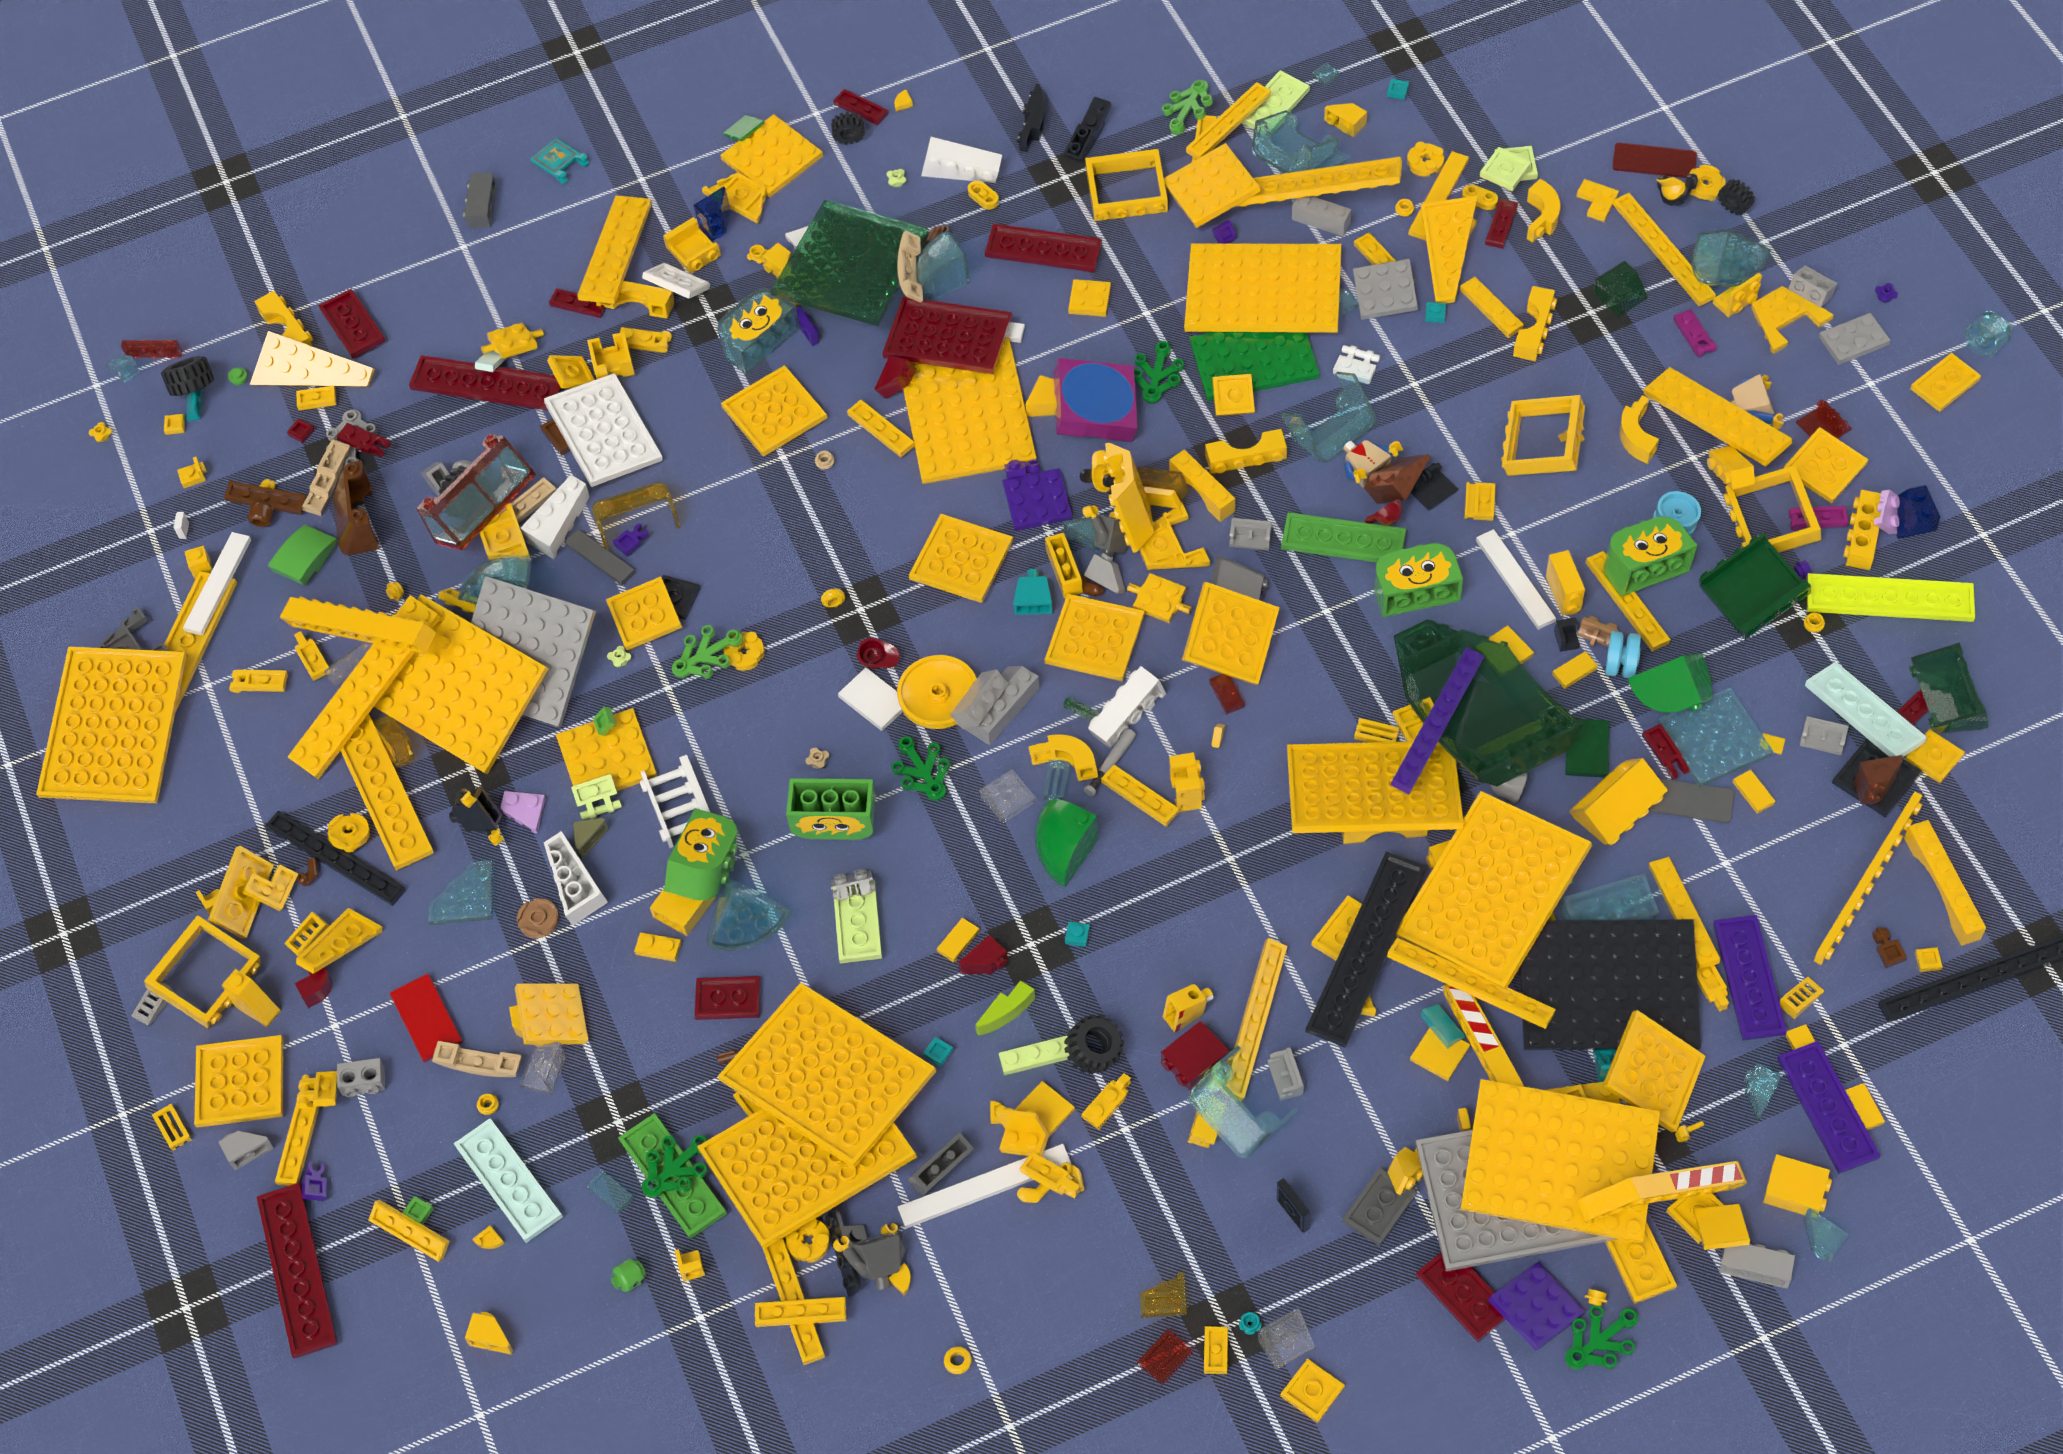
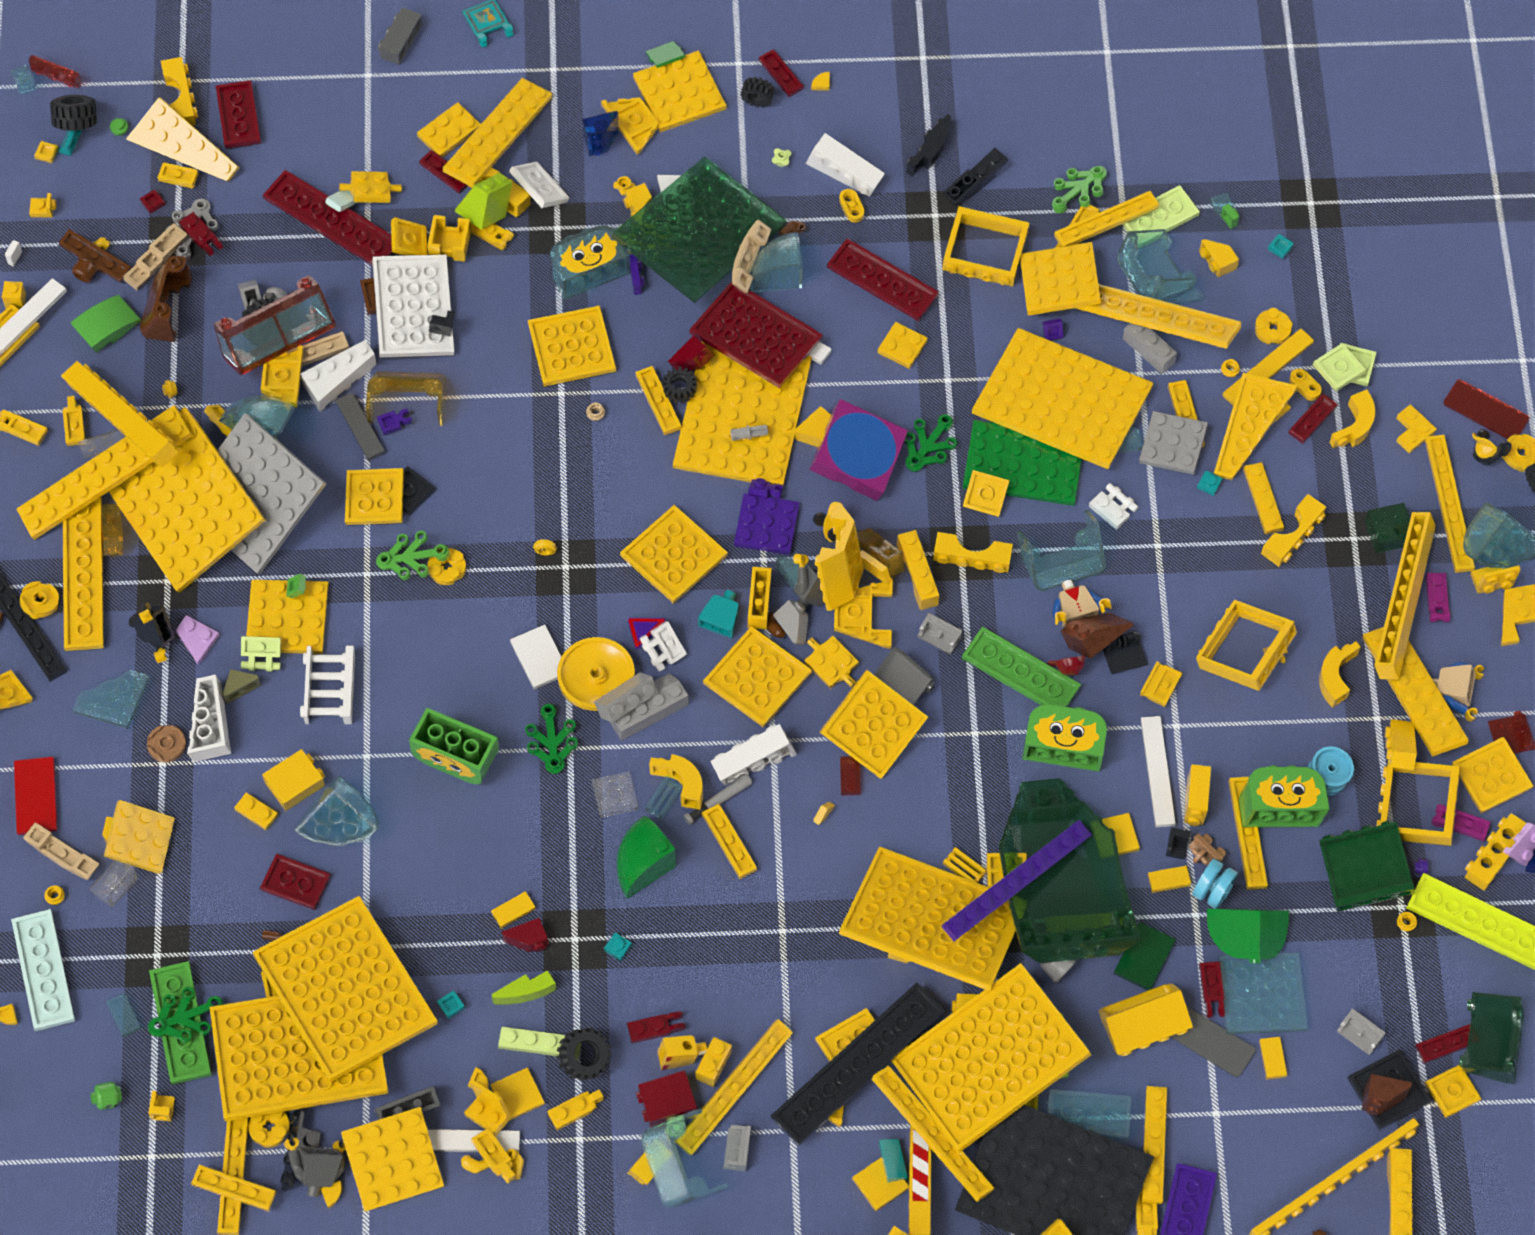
camera: 15 degrees right, 5 degrees up
(565, 265) = (448, 130): none -> yellow plate
(619, 661) = (341, 531): yellowish green plate -> none
(633, 309) = (486, 201): none -> lime slope
(641, 435) = (442, 325): none -> black panel
(691, 246) = (568, 154): yellow panel -> none
(702, 856) = (323, 747): bright green brick -> none
(817, 763) = (466, 698): tan plate -> none
(858, 926) = (434, 858): yellowish green plate -> none
(859, 877) = (452, 819): light grey hinge -> none
(877, 654) = (559, 617): dark red piece -> none
(896, 396) = (679, 375): none -> black tyre
(949, 1219) = (392, 1159): none -> yellow plate
(965, 634) = (641, 627): none -> piece
(982, 423) = (748, 432): none -> light grey axle
(995, 638) = (668, 644): none -> white plate
(1080, 708) = (714, 739): clear green axle -> none
(1149, 994) = (654, 1027): none -> dark red hinge
(1187, 781) = (773, 849): yellow piece -> none
(1224, 1003) = (713, 1062): none -> yellow brick
(1338, 80) = (1230, 215): none -> bright green plate
(1668, 339) = (1405, 596): none -> yellow brick
(1775, 743) = (1314, 1019): yellow sticker -> none
(1865, 711) = (1408, 1025): light aqua plate -> none

